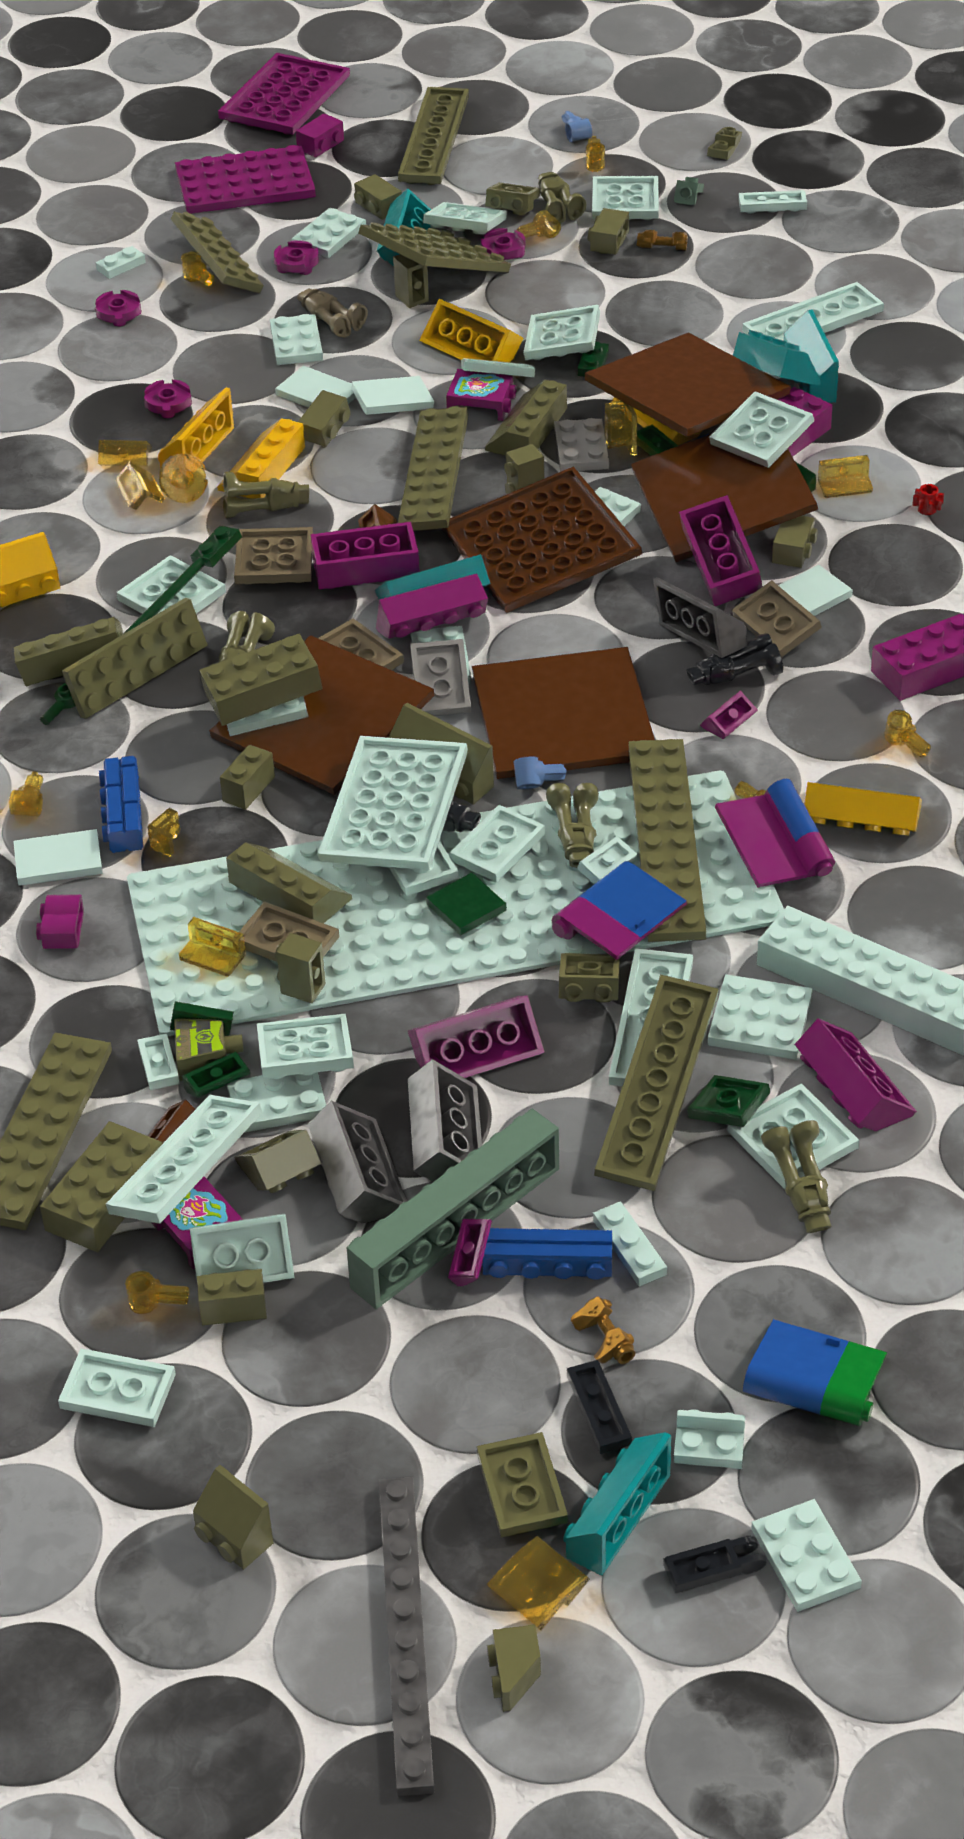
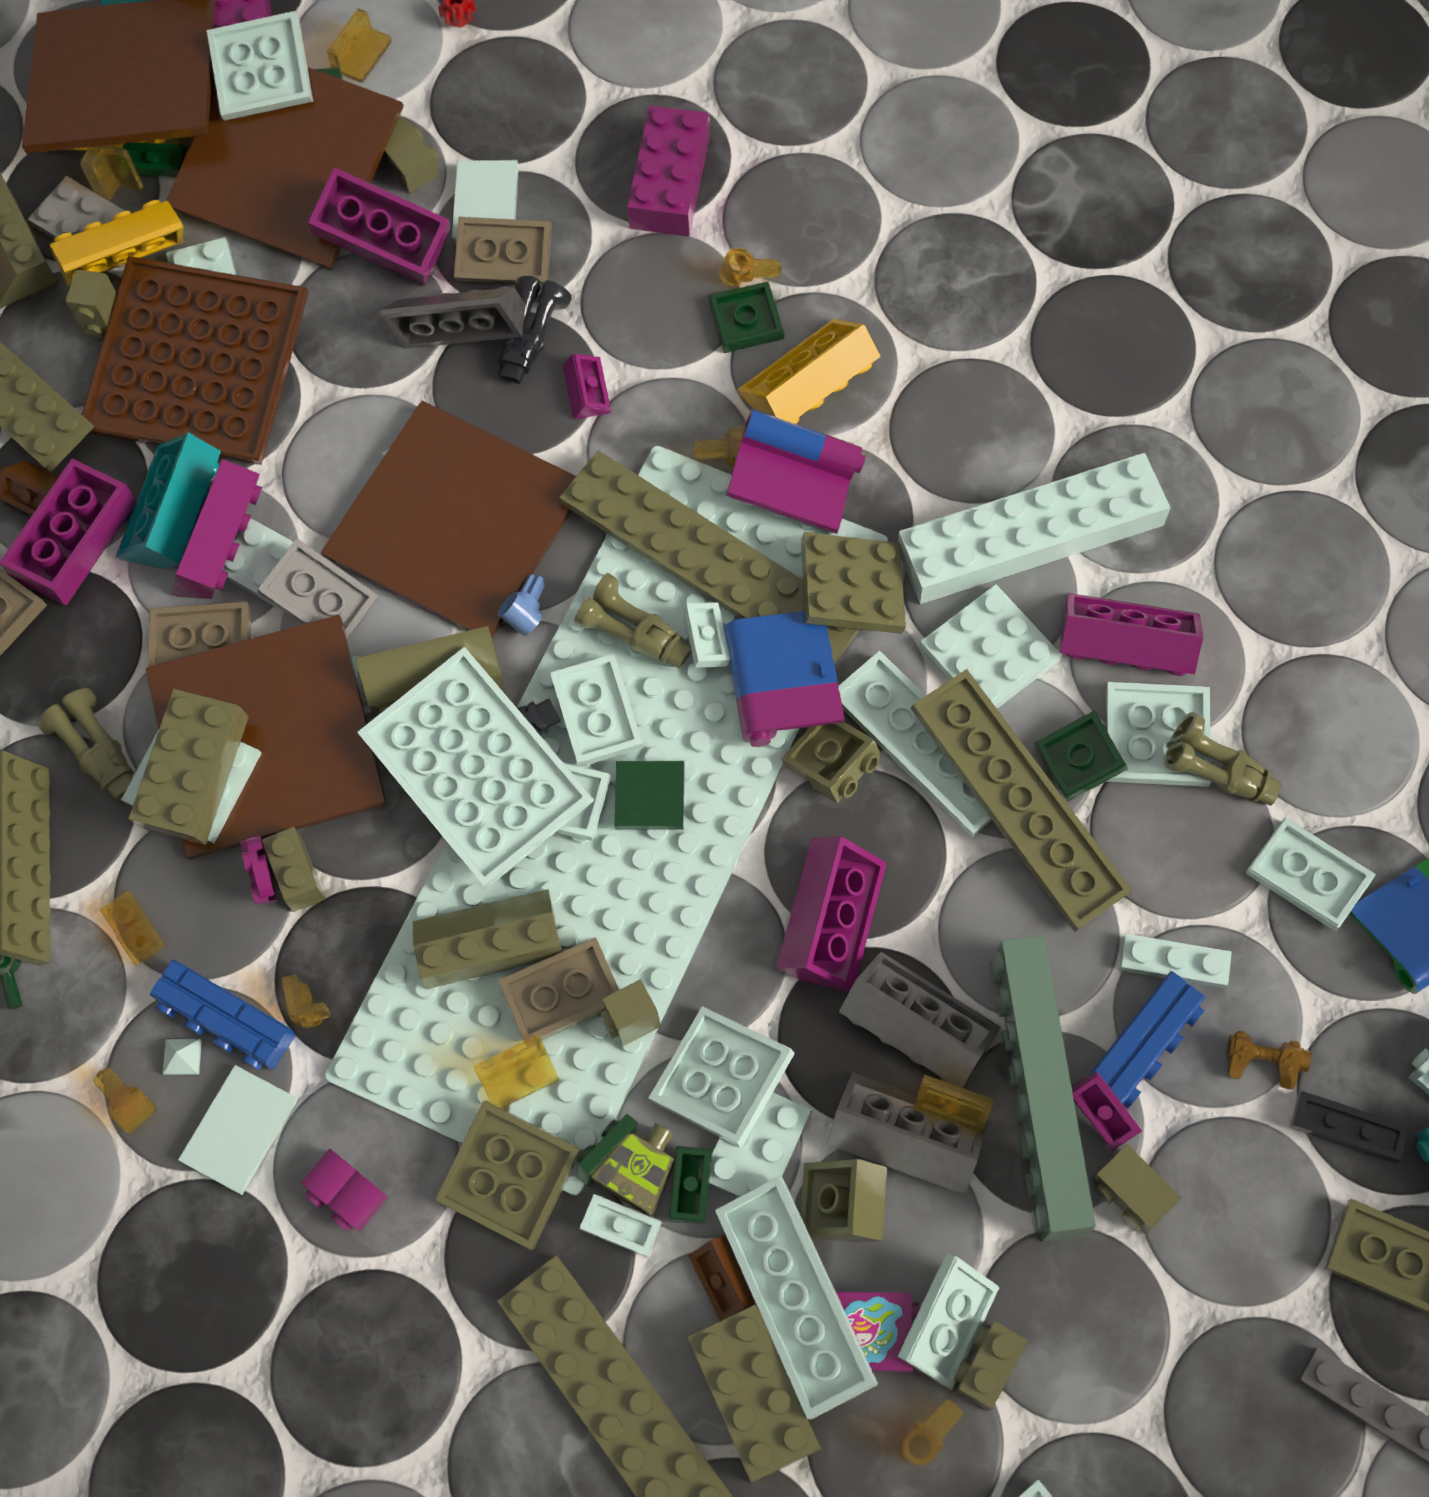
camera: 50 degrees left, 25 degrees up
(80, 807) = (182, 1056): none -> light aqua slope
(140, 985) = (508, 1174): none -> olive plate
(142, 737) = (132, 927): none -> clear yellow slope
(229, 749) = (258, 869): none -> magenta plate
(398, 1169) = (953, 1104): none -> clear yellow panel
(432, 1308) = (1135, 1190): none -> olive brick
(591, 460) = (110, 244): none -> yellow slope
(722, 906) = (852, 583): none -> olive plate
(776, 1281) = (1310, 874): none -> light aqua tile
(870, 758) = (746, 317): none -> dark green tile

